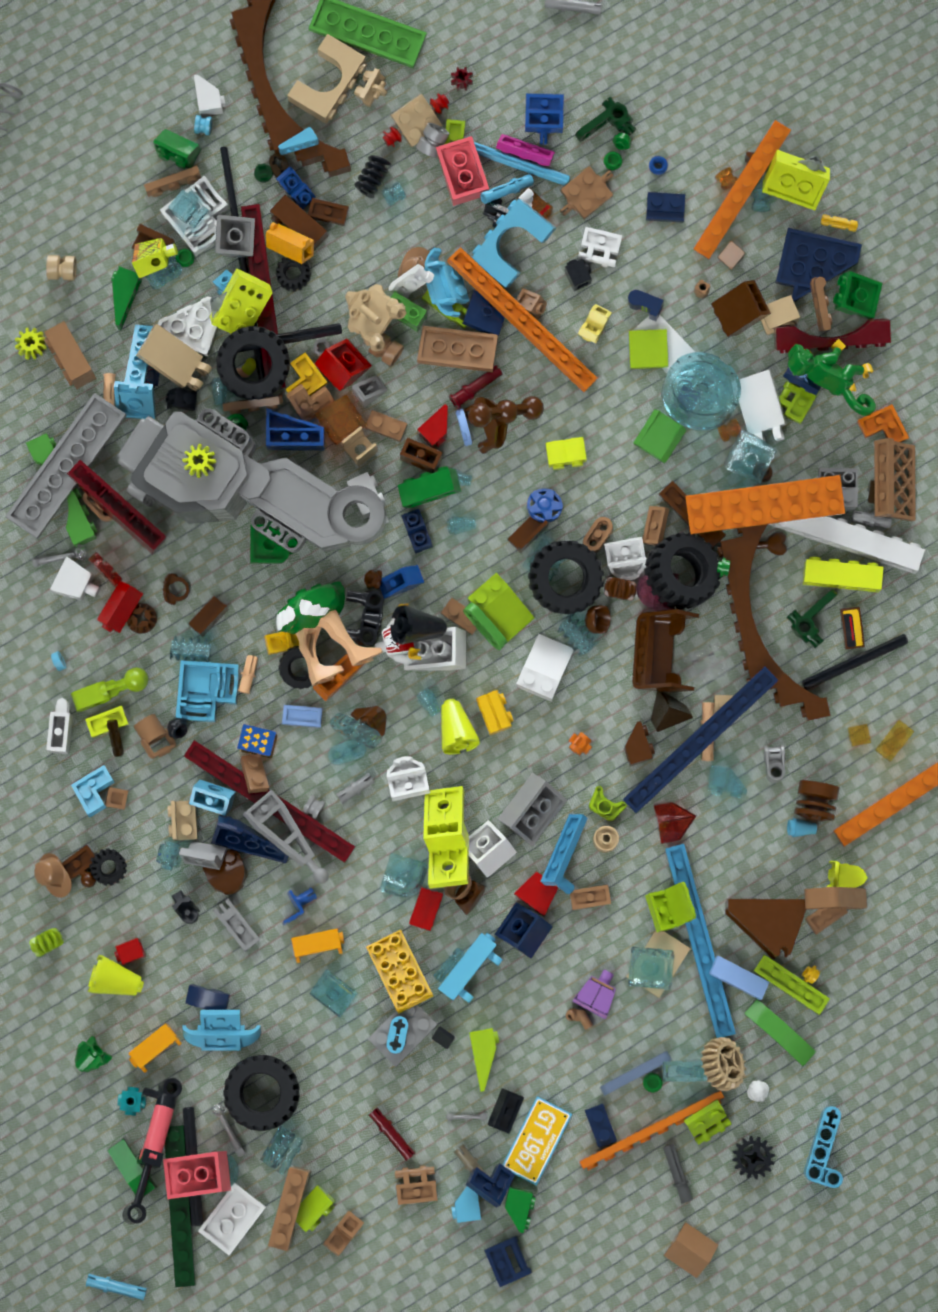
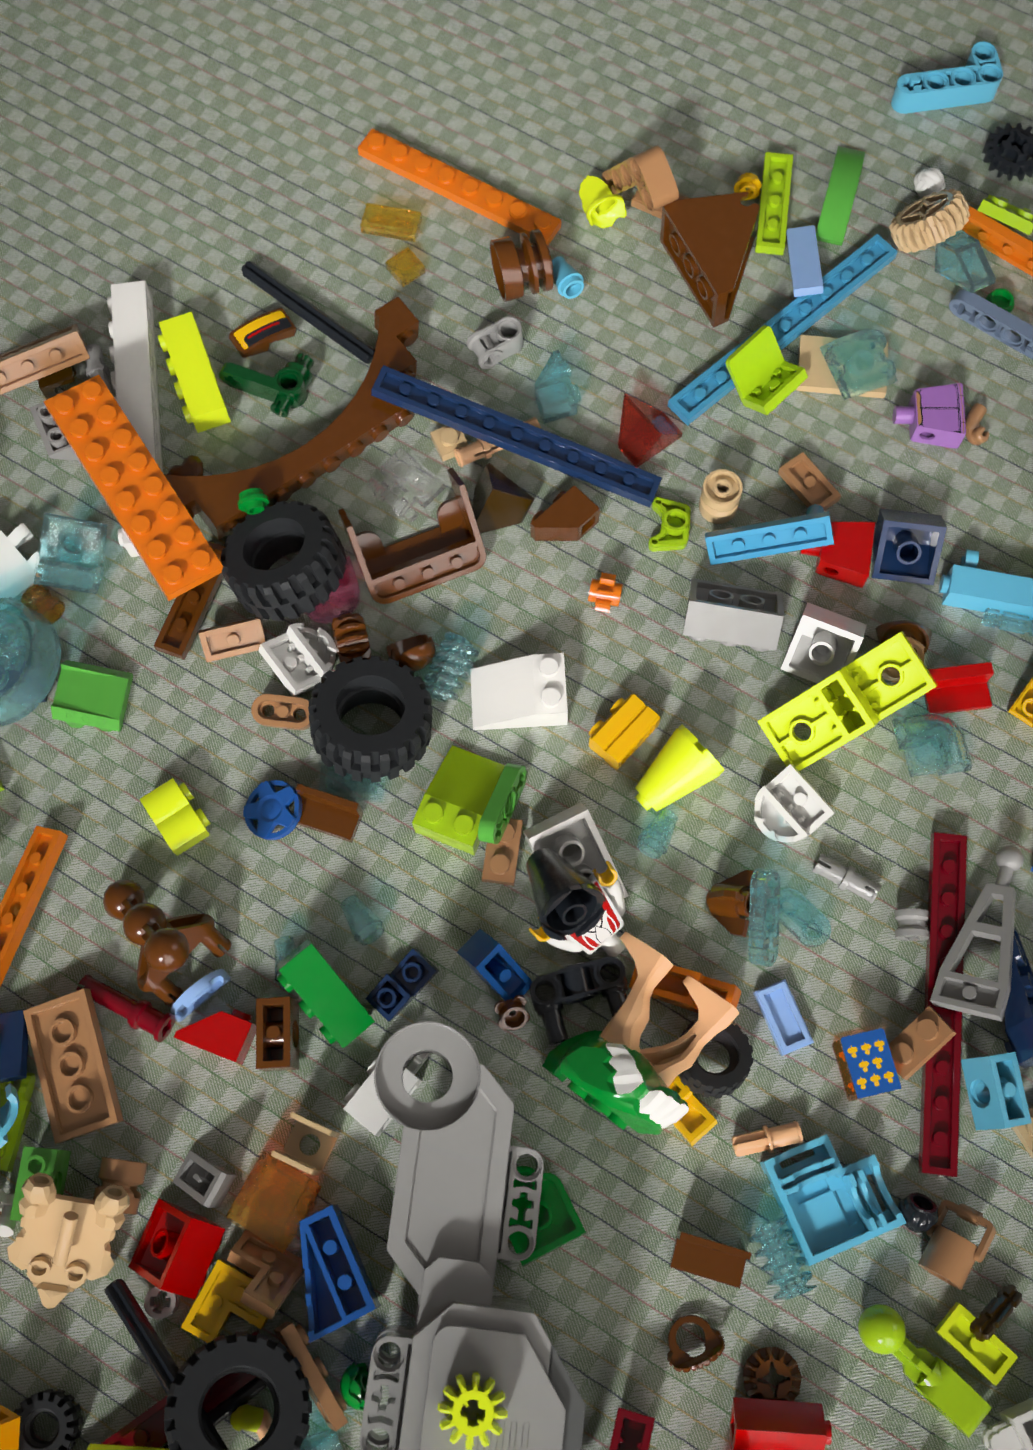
camera: 115 degrees left, 10 degrees down
(386, 426) = (251, 1121): medium nougat plate -> none

